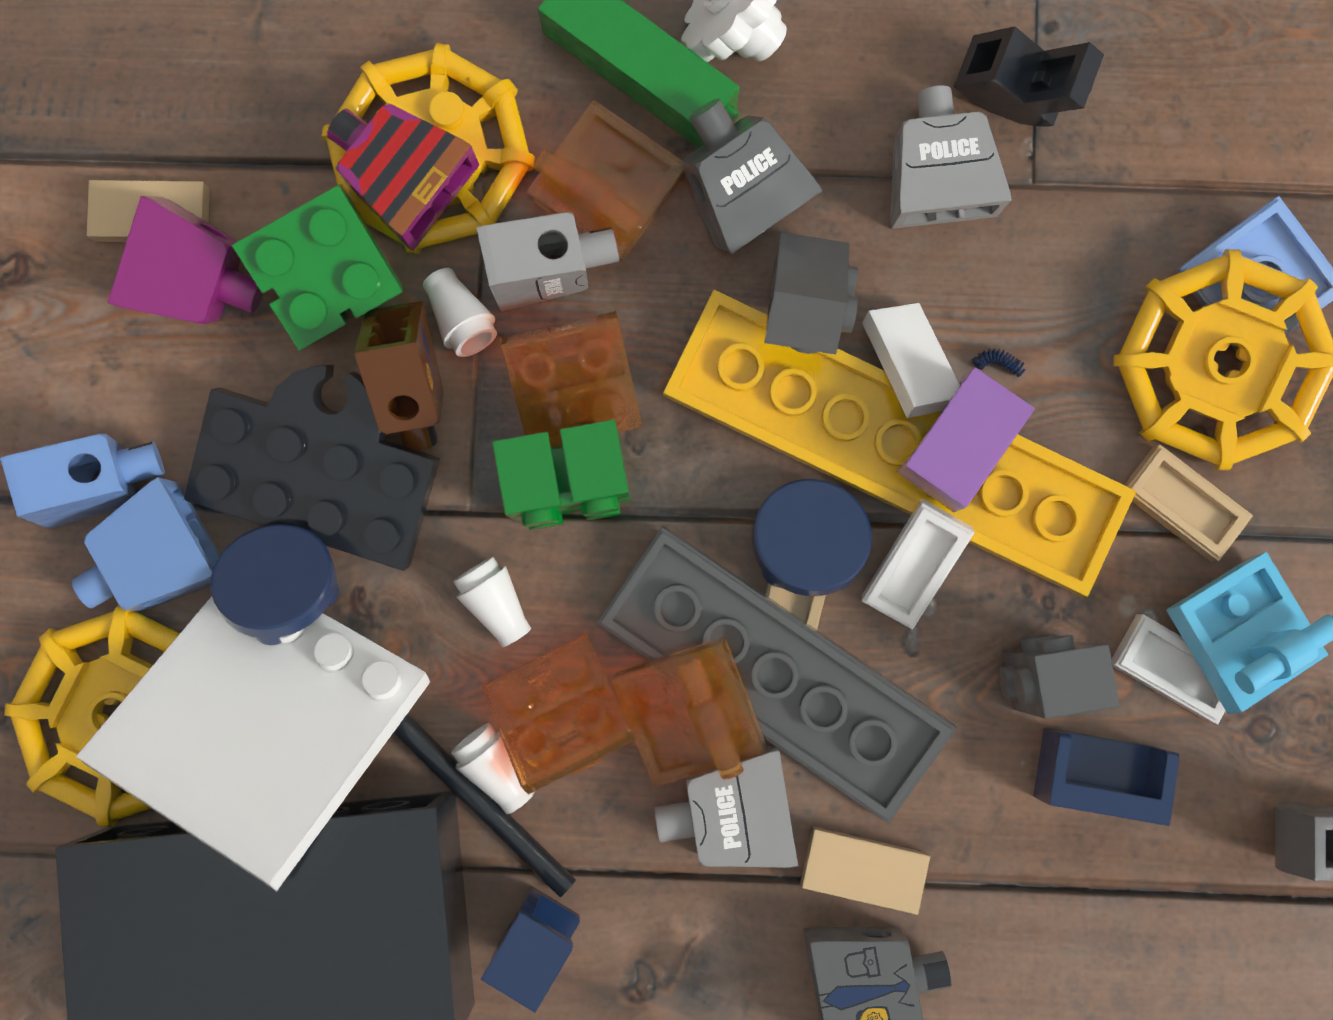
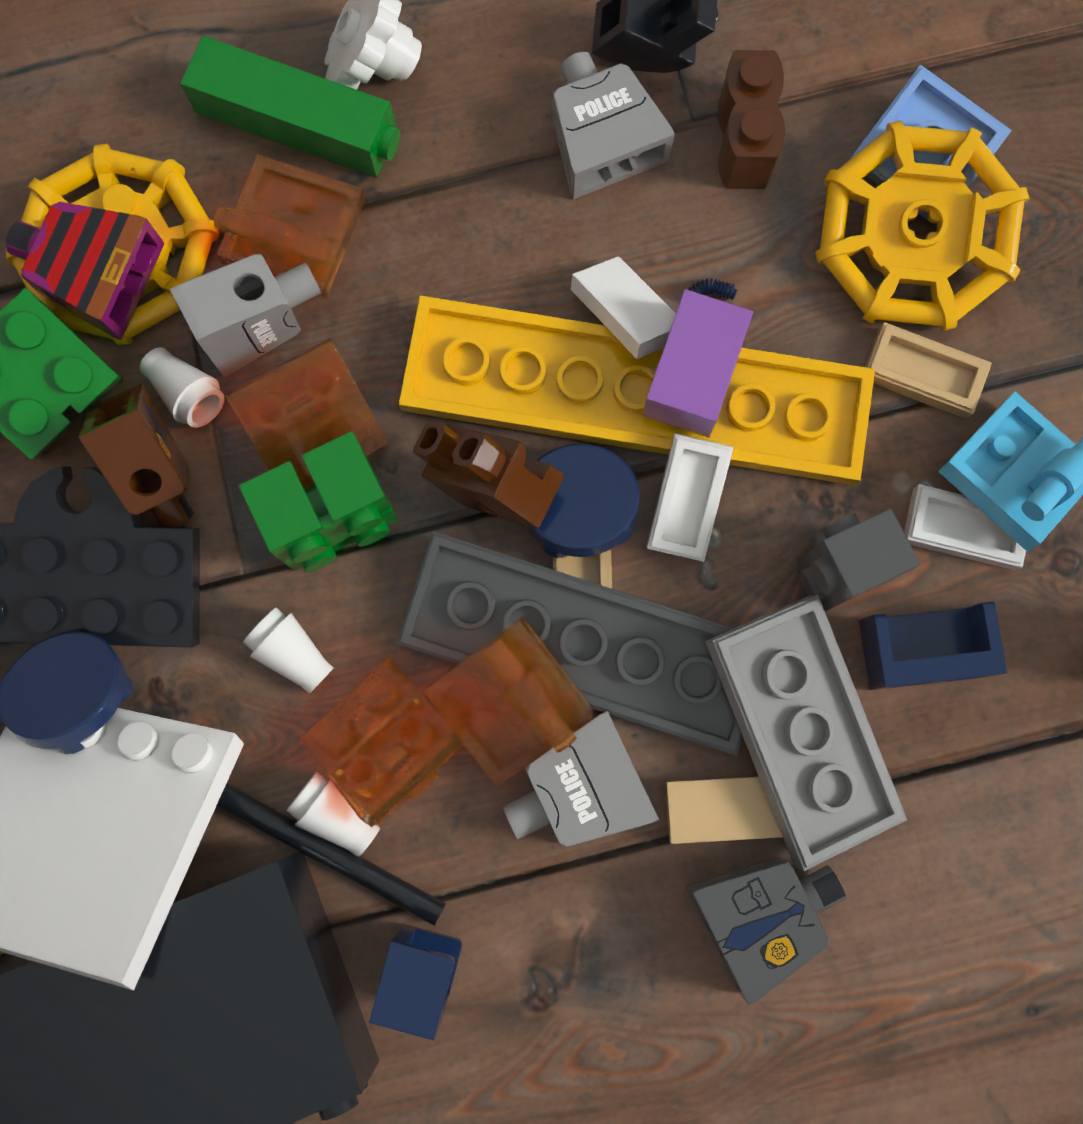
camera: 15 degrees left, 5 degrees down
(732, 490) = (487, 472): none -> reddish brown hips
(743, 176) = (417, 182): torso -> none
(811, 294) = (512, 271): dark grey brick -> none
(961, 821) = (806, 731): none -> light grey tile
(1092, 202) = (751, 119): none -> reddish brown brick

